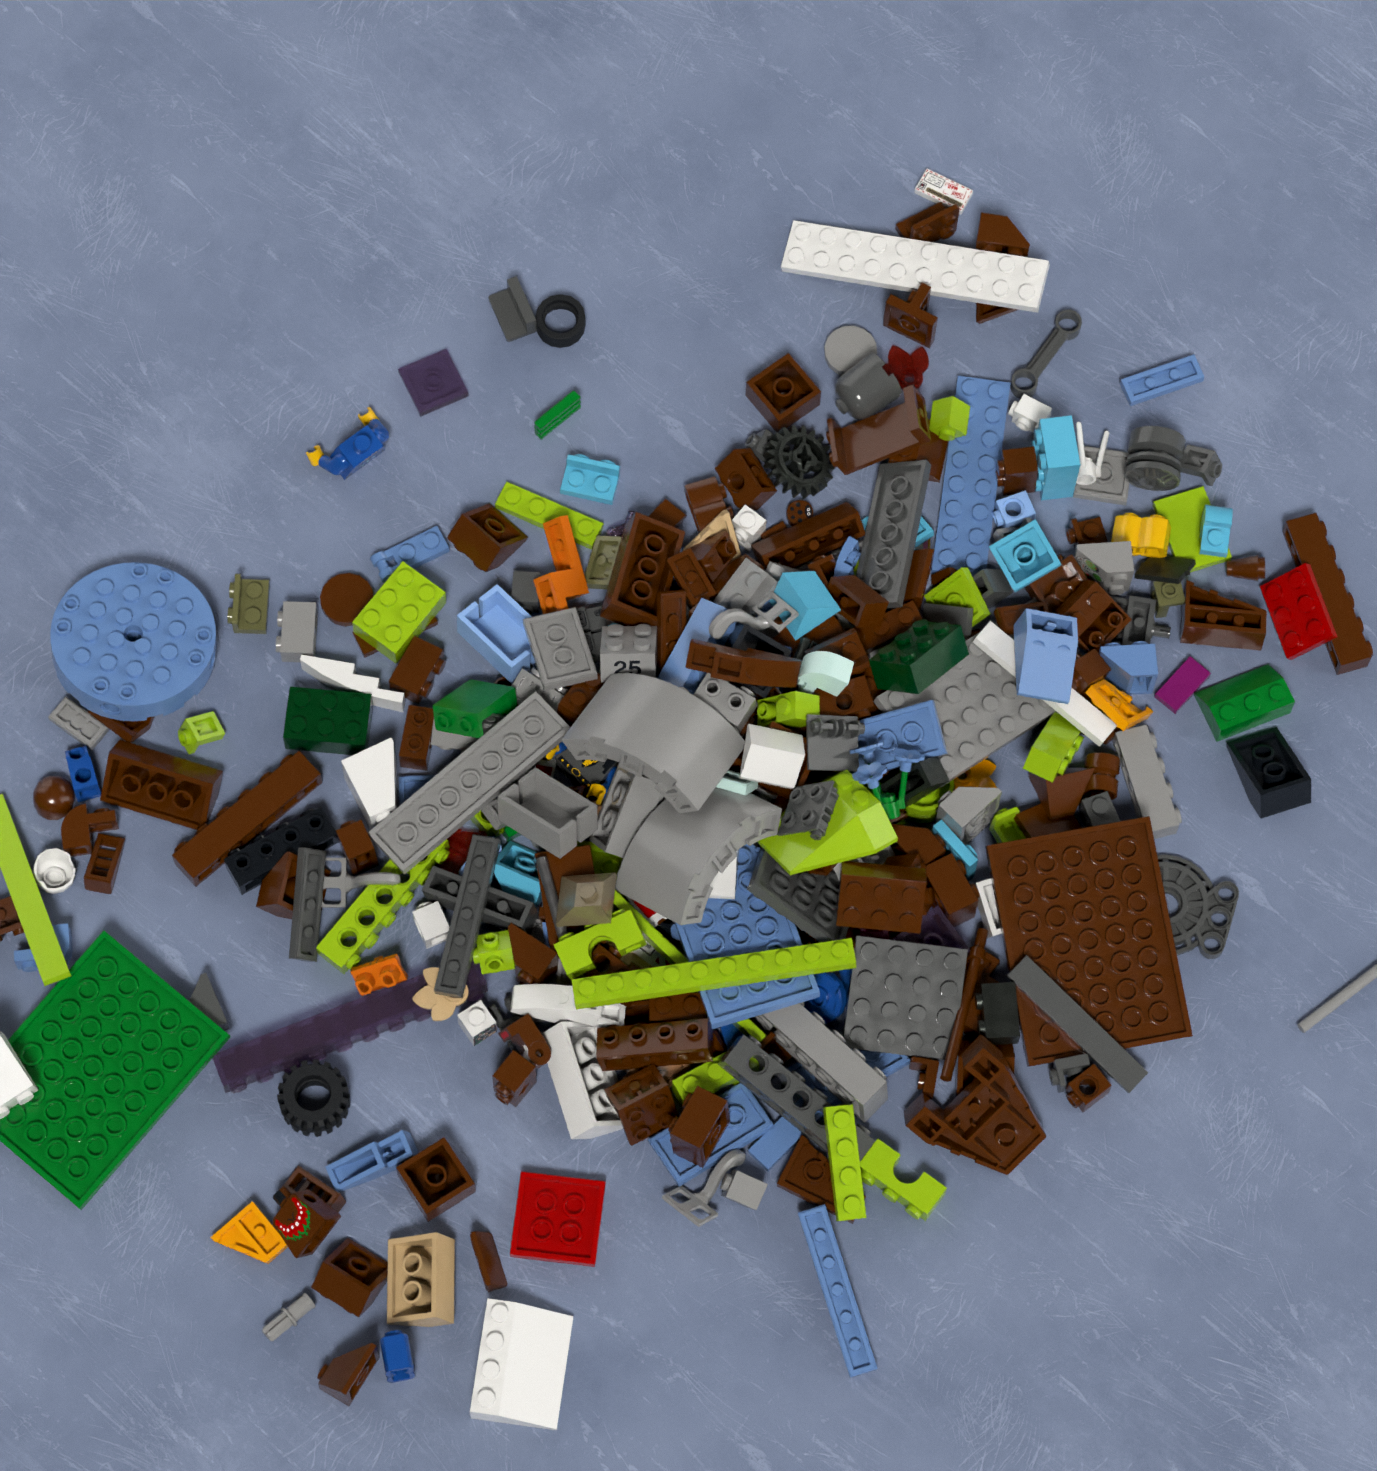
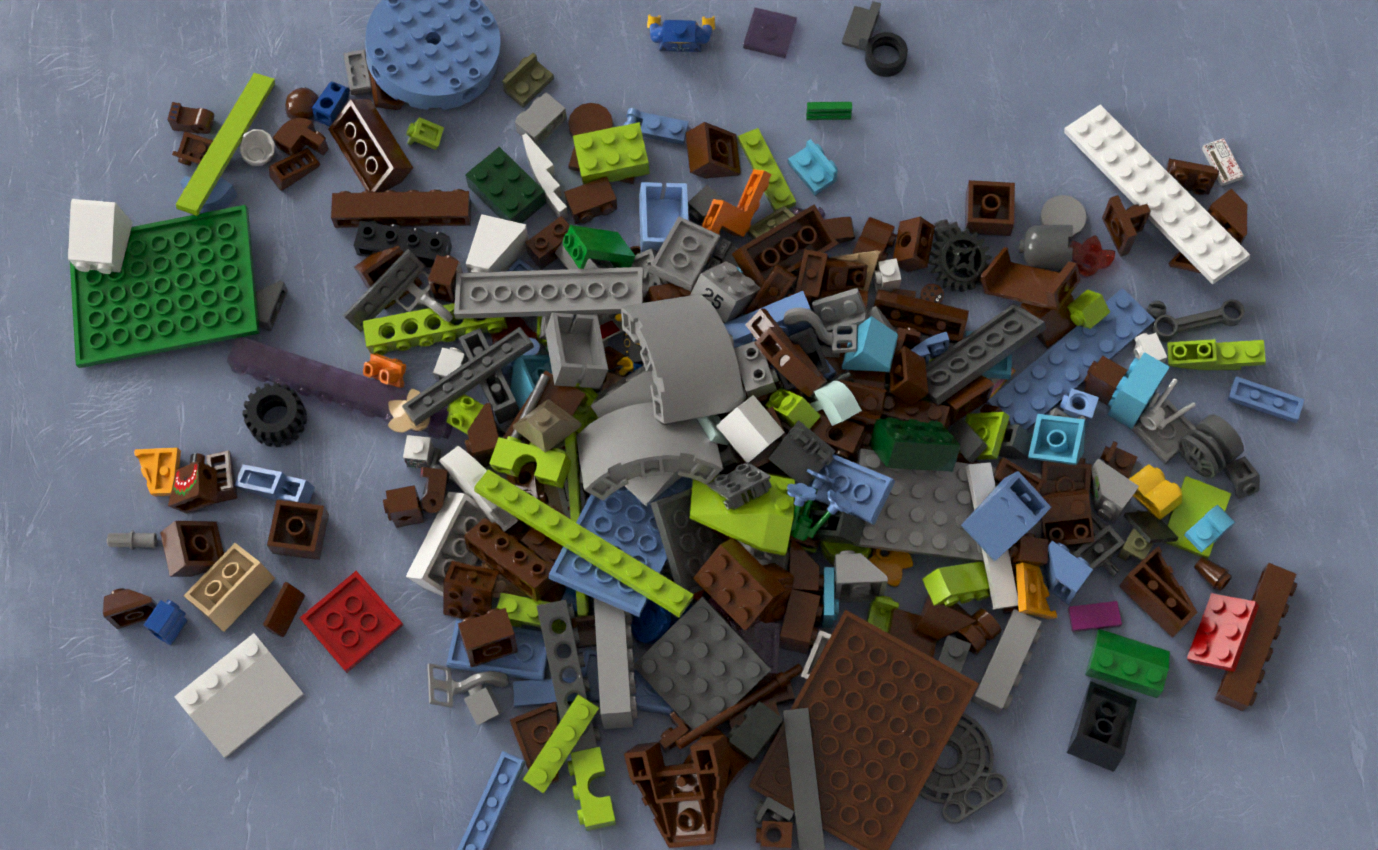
camera: 45 degrees right, 0 degrees up
(1005, 376) = (1156, 312): none -> dark grey hinge
(1089, 373) = (1216, 356): none -> lime slope

